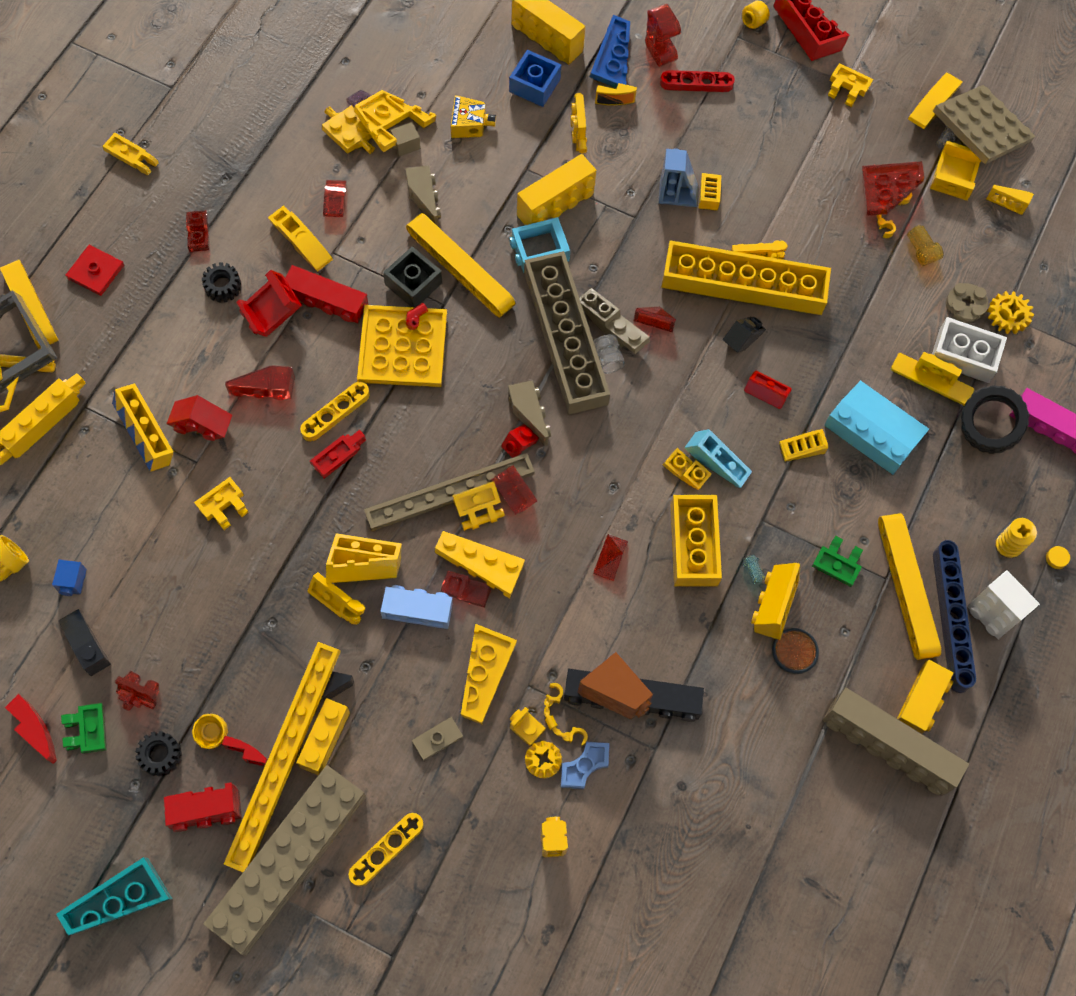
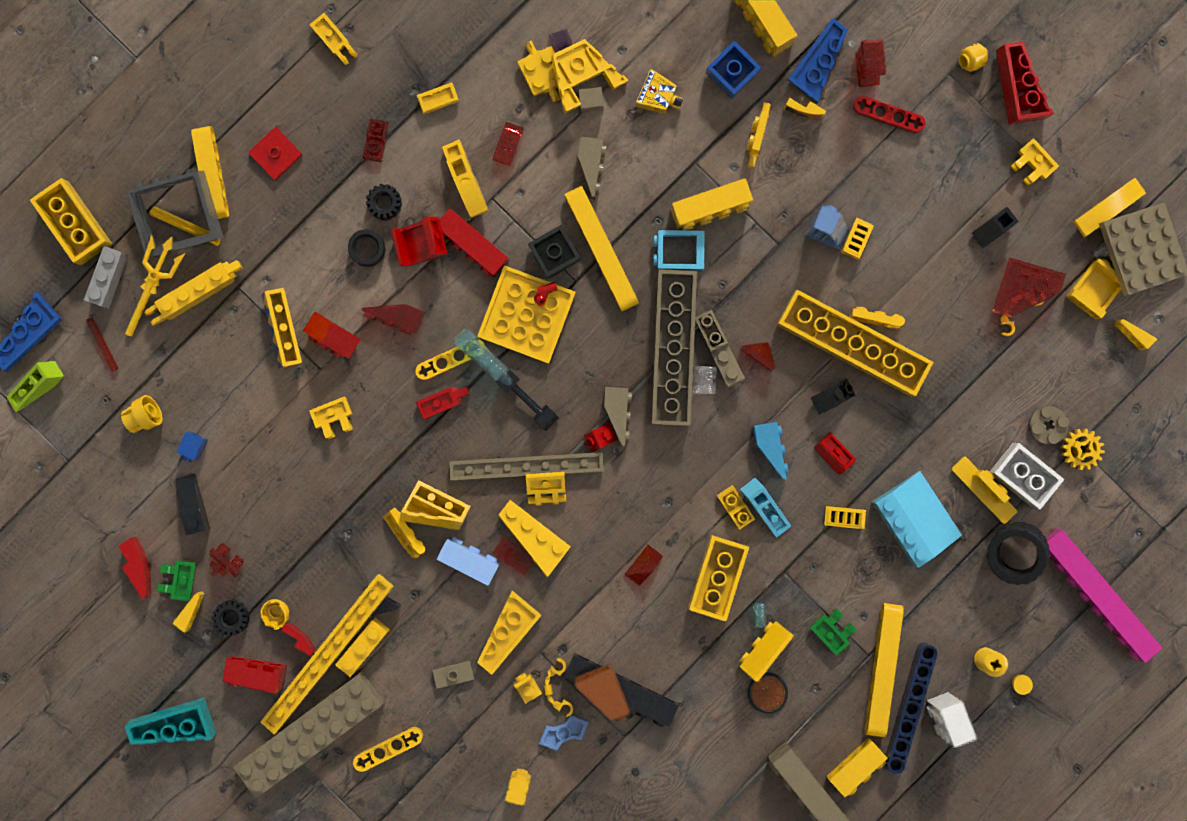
camera: 20 degrees right, 20 degrees up
(106, 763) = (186, 617): none -> yellow slope
(209, 316) = (352, 250): none -> black tyre
(251, 177) = (437, 98): none -> yellow plate
(399, 408) = (501, 375): none -> clear light blue piece
(514, 490) = (580, 484): clear red hinge -> none
(547, 769) = (532, 708): yellow gear -> none
(697, 396) = (768, 442): none -> dark azure slope
(837, 142) = (995, 227): none -> black slope
(926, 249) = (1033, 363): clear yellow piece -> none

